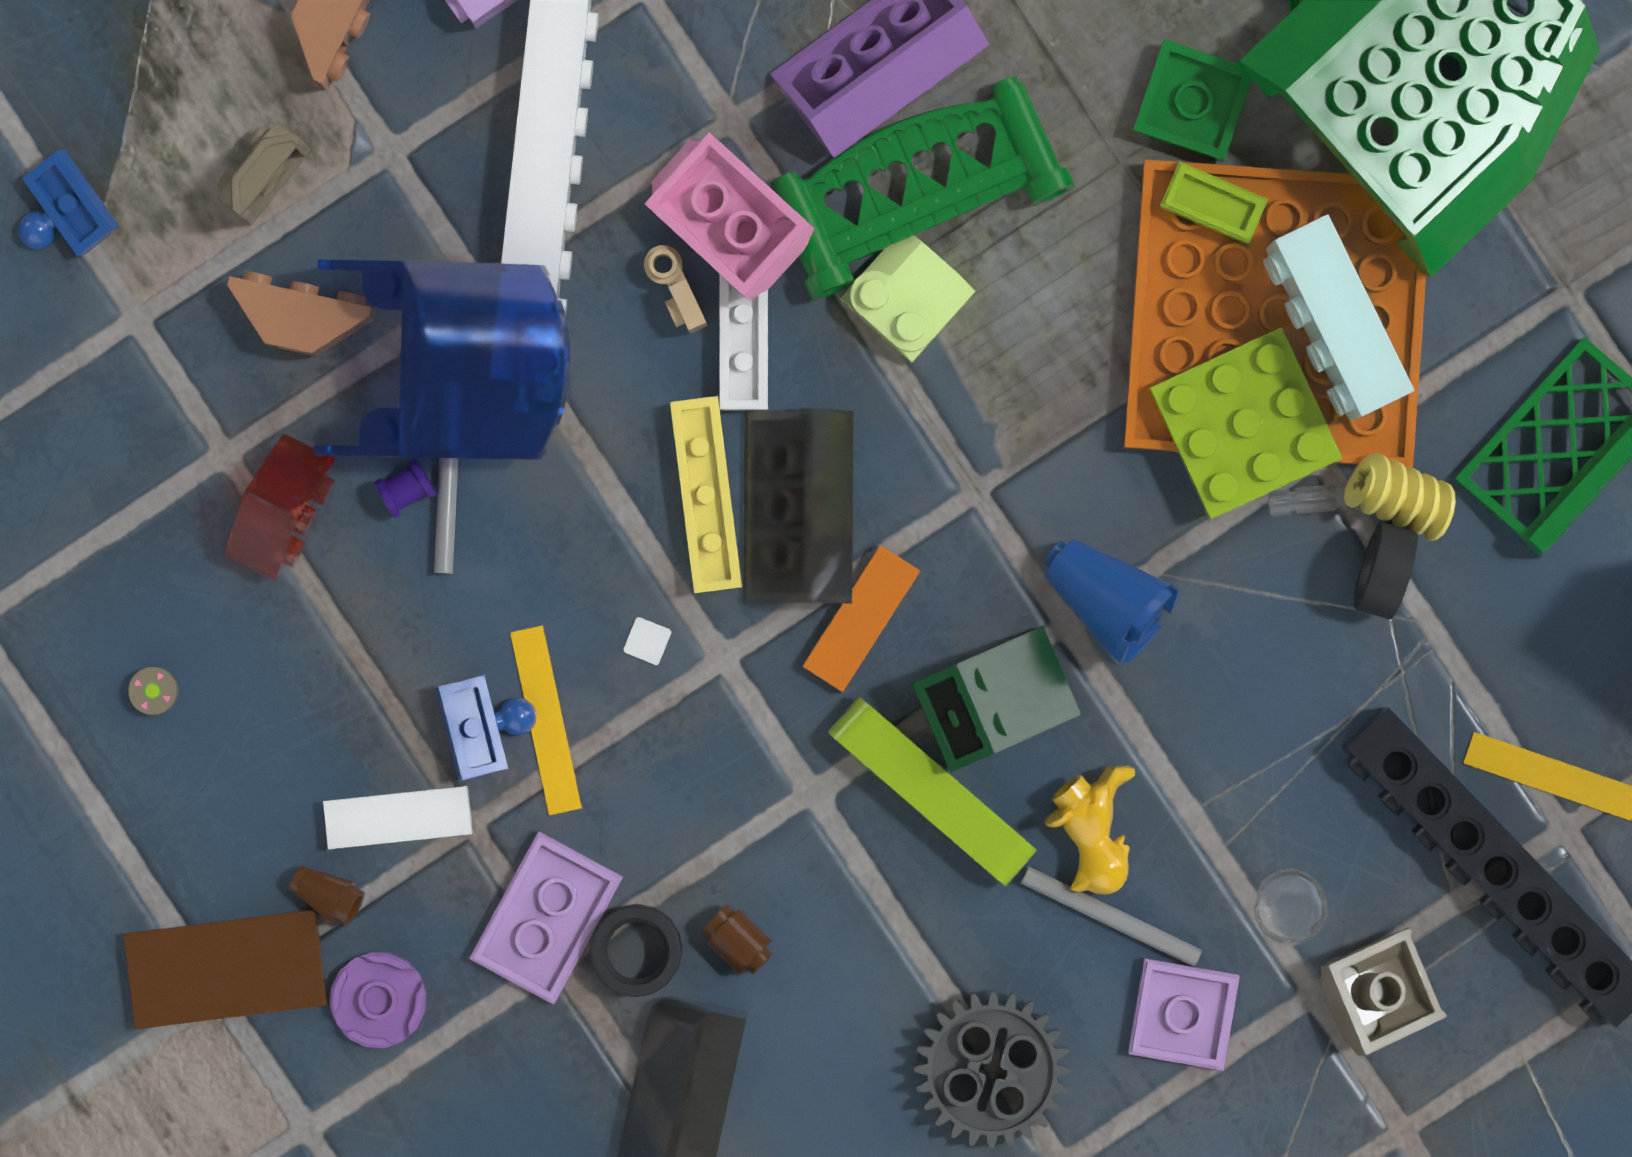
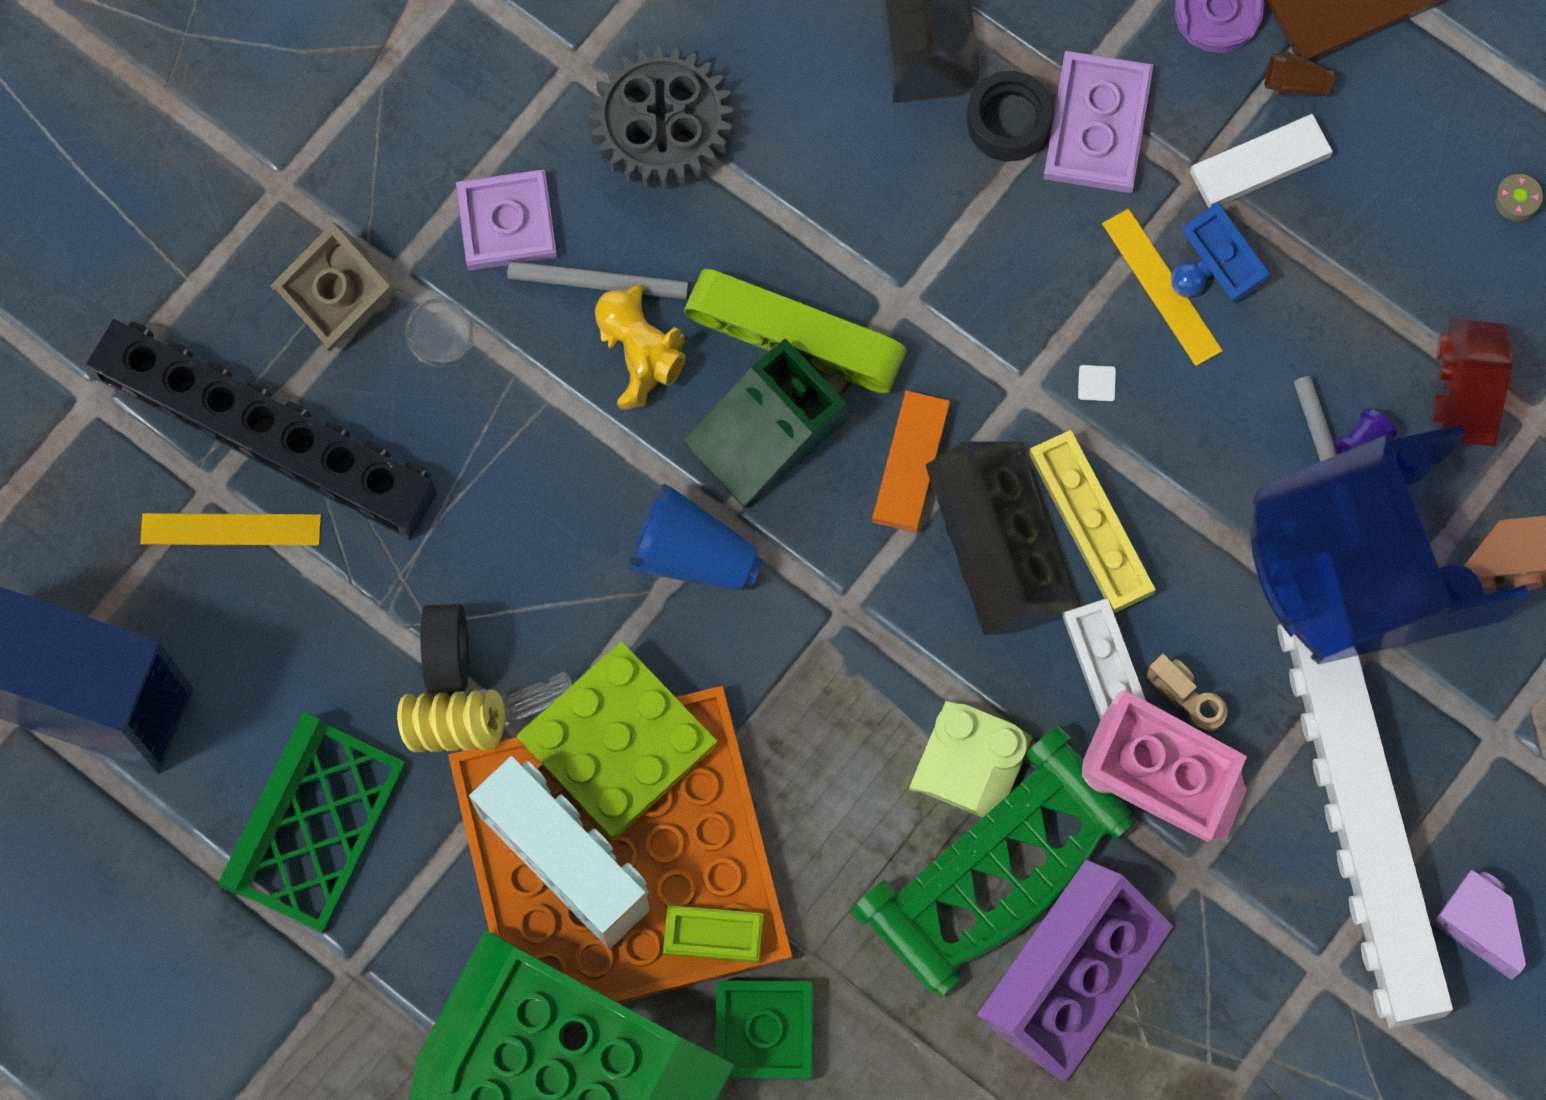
camera: 170 degrees right, 15 degrees down
(737, 940) = (923, 152): reddish brown brick -> none

